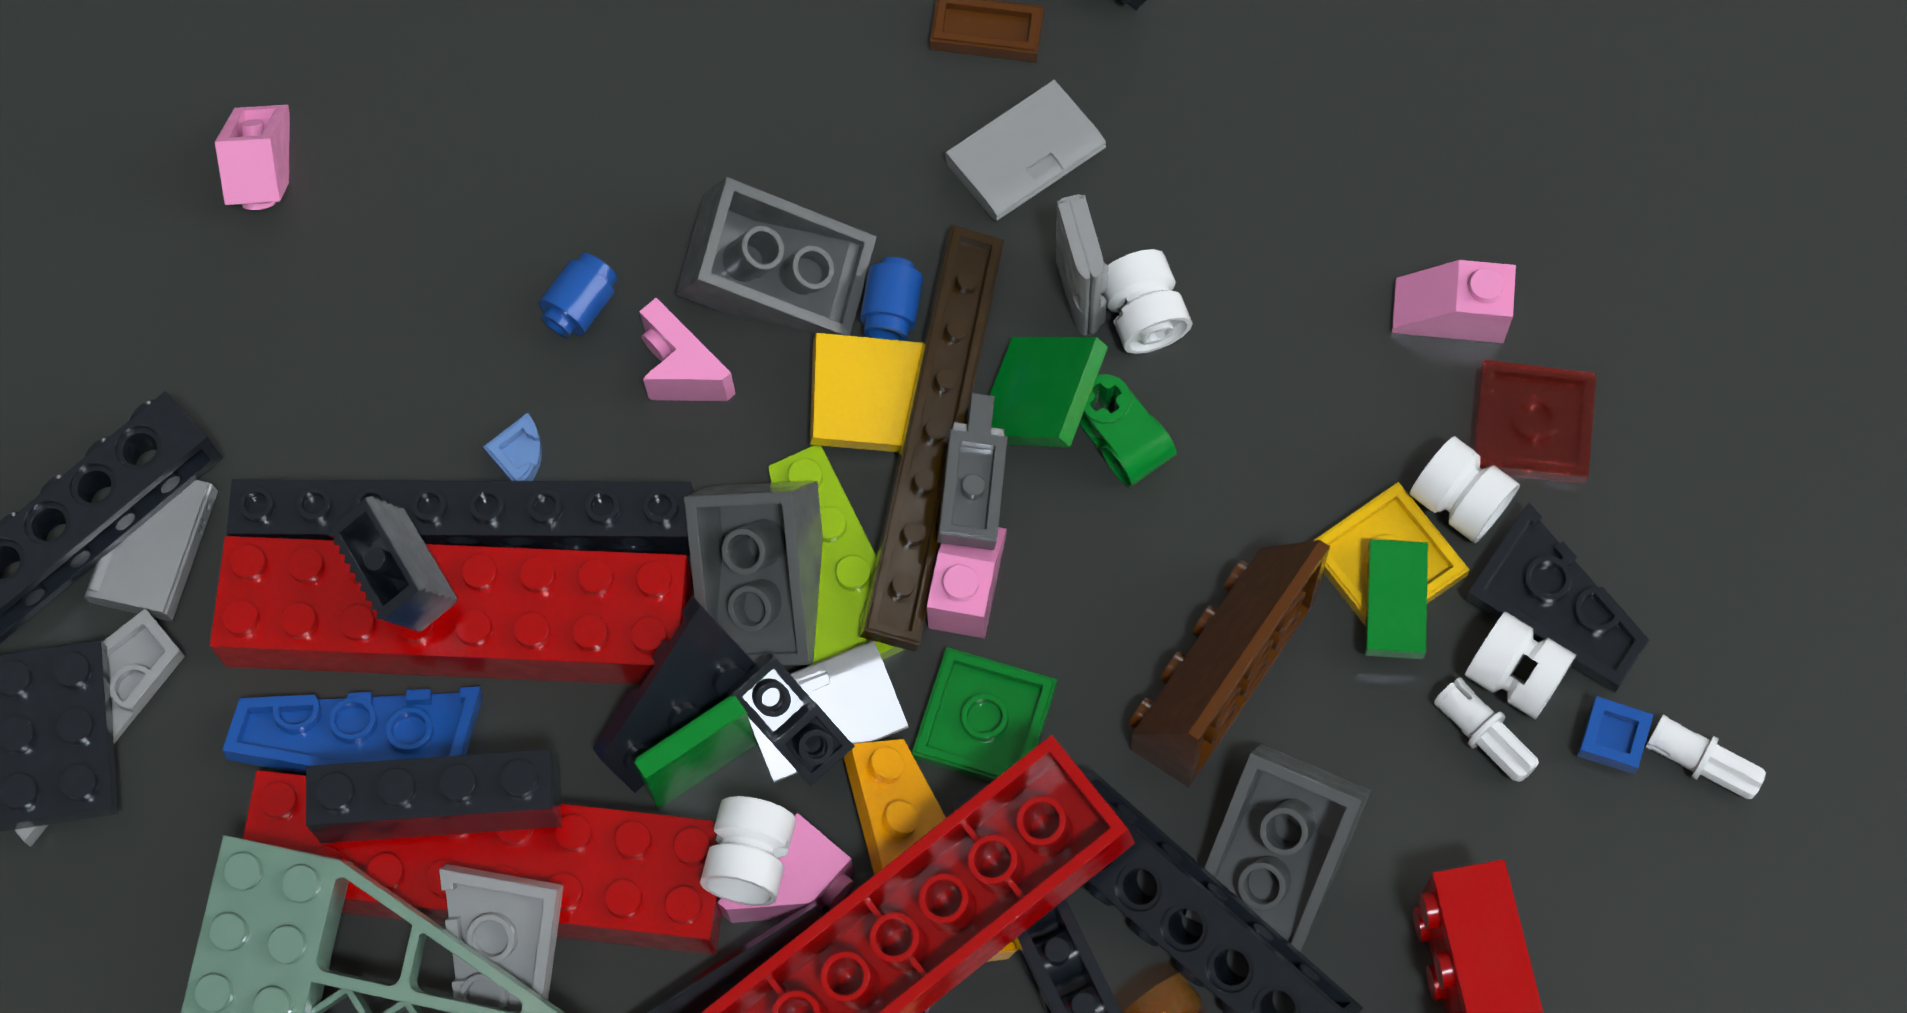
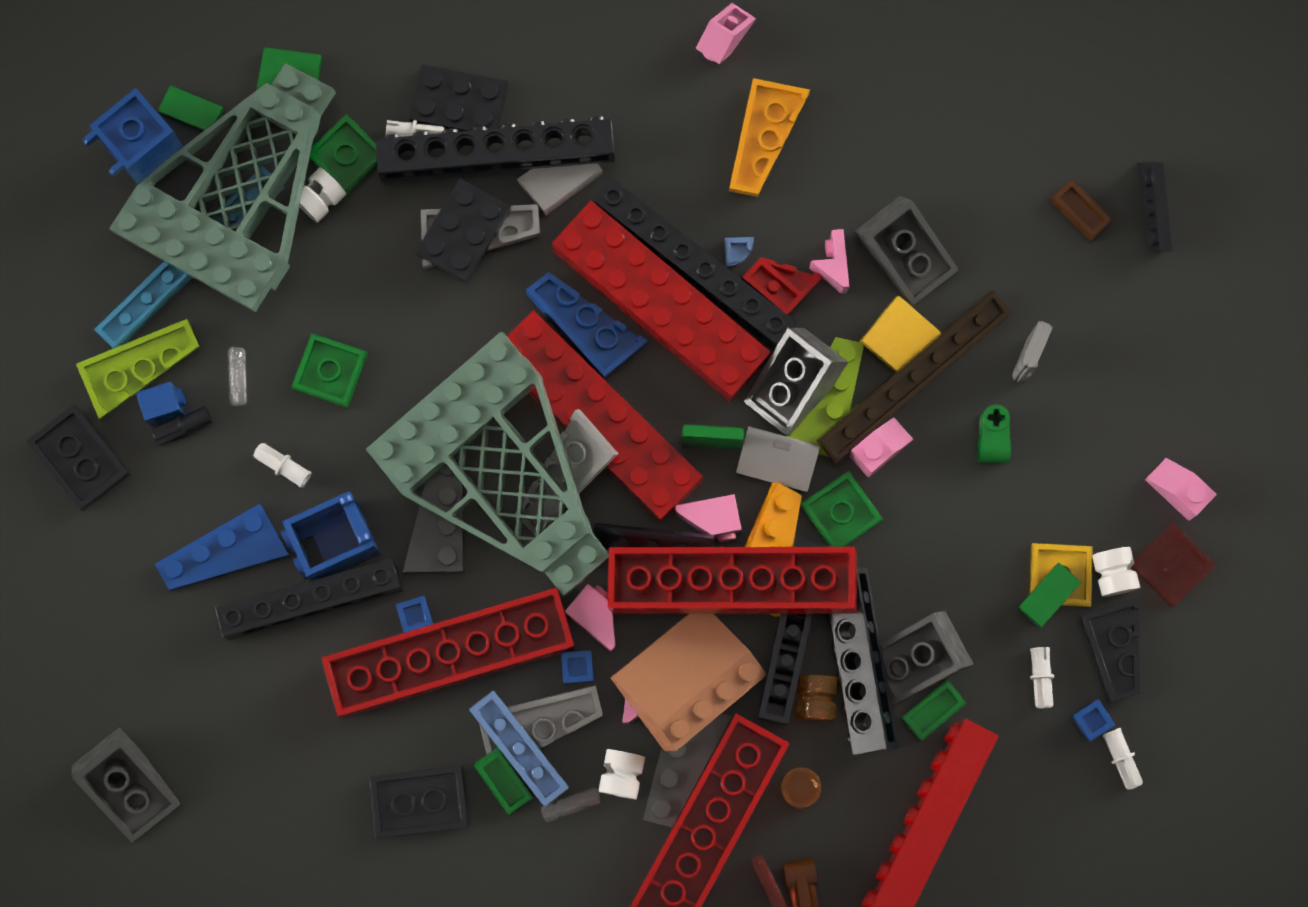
camera: 35 degrees right, 10 degrees up
(392, 564) = (647, 268): black brick -> none
(425, 245) = (766, 125): none -> light orange wing
(433, 796) = (594, 378): black brick -> none
(578, 295) = (812, 201): blue brick -> none
(623, 446) = (781, 283): none -> red wing
(683, 684) = (732, 407): black wing -> none
(745, 860) = (704, 493): white wheel -> none
(791, 719) = (760, 453): black slope -> none
(891, 299) = (942, 303): blue brick -> none
(973, 479) = (914, 409): dark grey hinge -> none
(1024, 150) = (1052, 279): light grey piece -> none
(1045, 388) = (972, 393): green tile -> none
(1143, 296) = (1048, 385): white wheel -> none
(1228, 658) = (958, 566): reddish brown slope -> none
(1367, 911) = (933, 710): none -> green tile
(1503, 652) = (1075, 651): white wheel -> none

